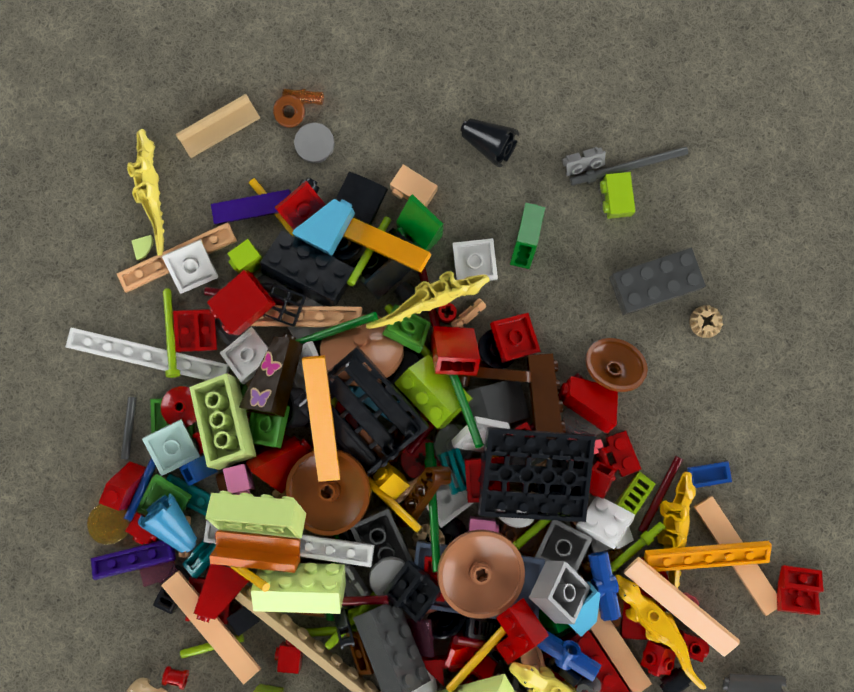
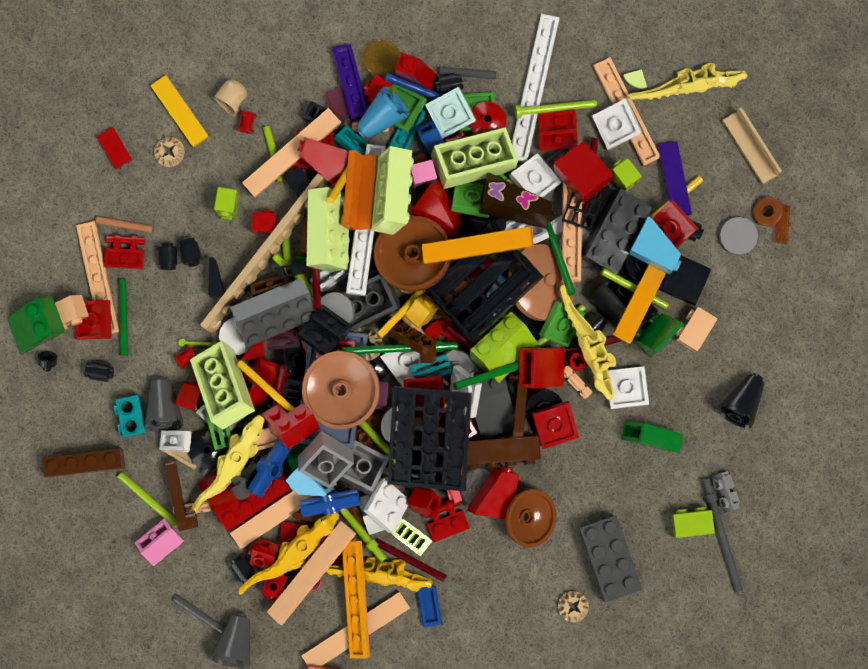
camera: 85 degrees right, 0 degrees up
(138, 450) = (448, 83): none -> black brick

